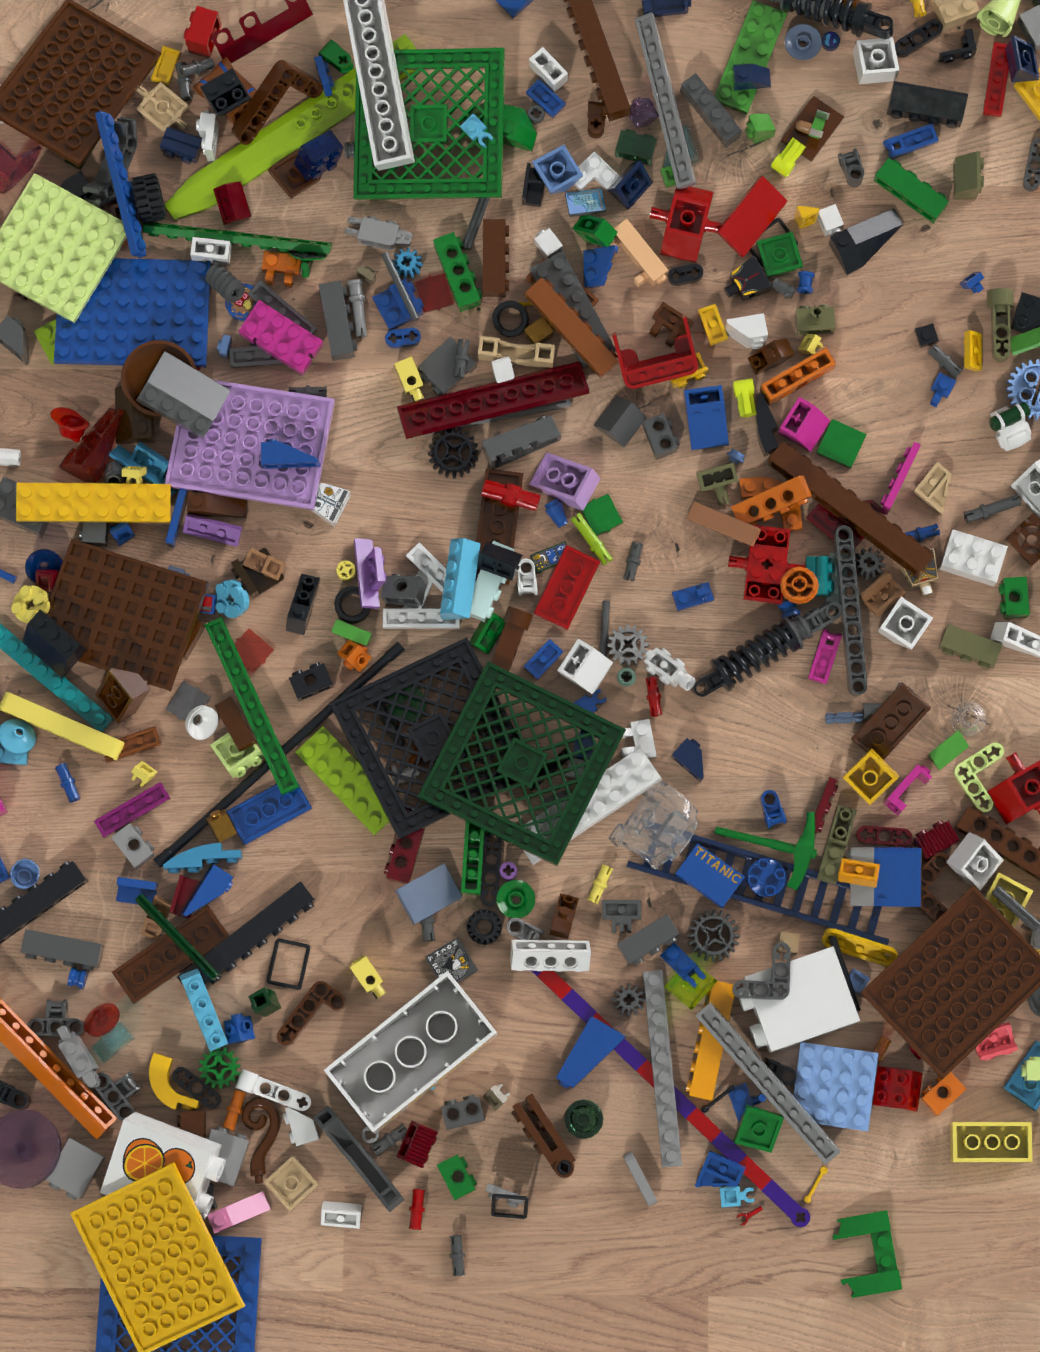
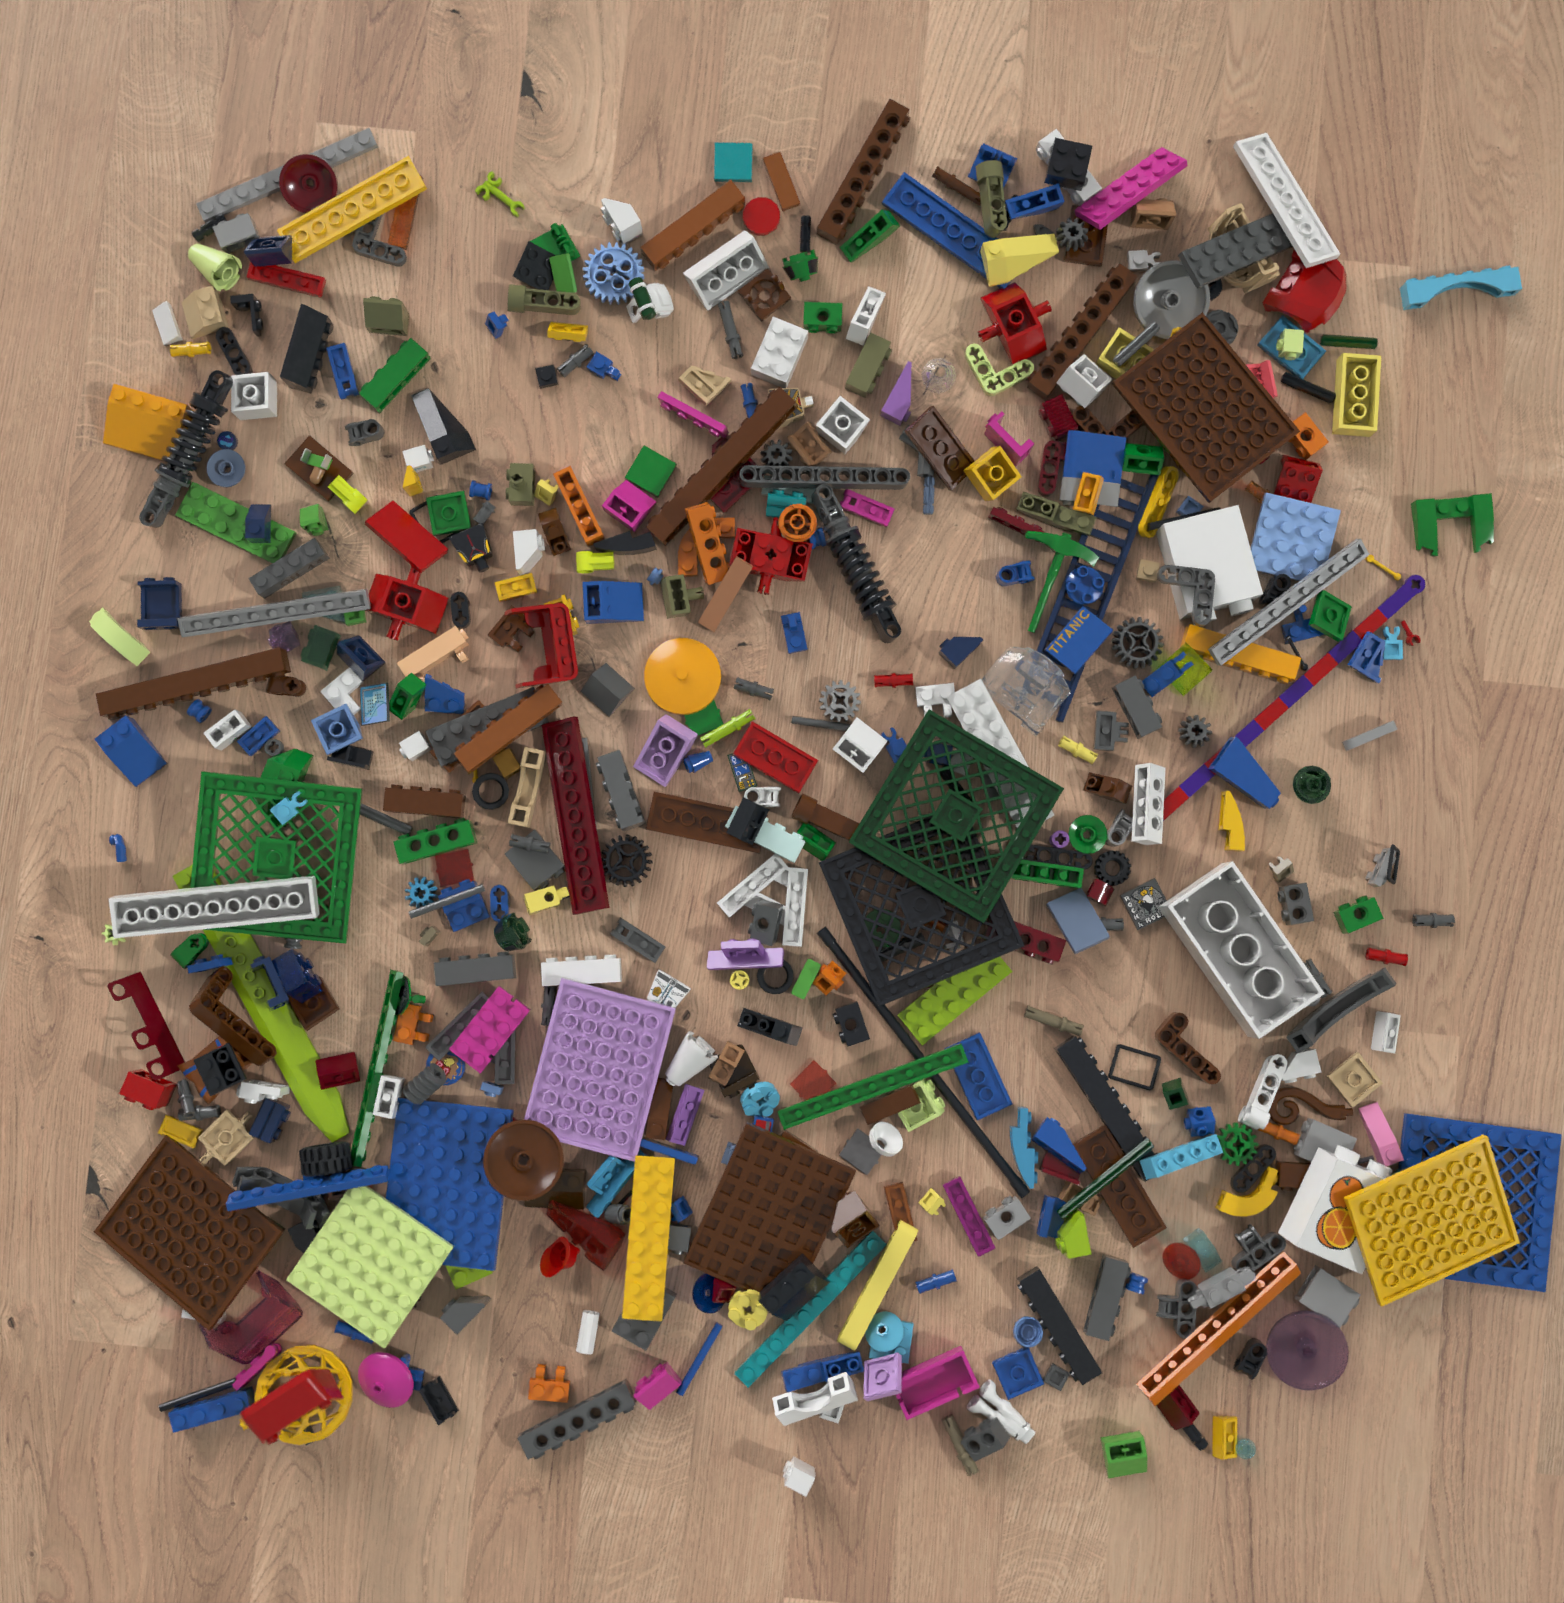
camera: 90 degrees left, 5 degrees up
(118, 910) = (1073, 1236): none -> lime slope
(134, 472) = (619, 1193): light yellow tile -> none
(183, 395) = (544, 1135): slope -> none
(221, 825) = (993, 1126): pearl gold brick -> none
(266, 529) = (689, 1059): none -> white cone
(280, 455) = (617, 1039): blue slope -> none
(295, 142) = (281, 997): none -> dark blue panel
(328, 879) = (1054, 1021): none -> dark tan pin
(342, 422) = (583, 971): none -> white brick
(357, 299) = (453, 947): light grey pin -> none
(362, 968) = (1154, 989): light yellow torso -> none
(374, 351) = (512, 933): none -> clear green cone
(376, 471) = (638, 940): none -> dark grey plate
(378, 233) = (386, 919): light grey hinge -> none
(417, 1144) = (1325, 951): dark red brick -> none
(458, 916) = (1100, 892): none -> dark red brick
(460, 579) = (763, 862): medium azure slope -> none
(502, 369) = (544, 803): white slope -> none
(511, 495) = (677, 805): red piece -> none
(539, 1042) = (1231, 822): none -> yellow slope
(543, 659) = (847, 787): blue plate -> none
(555, 1158) = (1346, 813): reddish brown hinge -> none
(564, 41) = (199, 711): none -> blue wheel
(626, 672) = (874, 699): sand green cone -> none
(639, 491) = (682, 676): none -> light orange dish
(656, 437) = (628, 655): dark grey brick -> none
(662, 1069) = (1265, 704): light grey plate -> none
(670, 671) = (867, 663): white brick -> none
(901, 926) = (1143, 459): none -> green brick
(935, 679) = (899, 401): none -> medium lavender slope
(948, 750) = (968, 398): bright green slope -> none
(995, 1094) = (1308, 387): none -> black axle

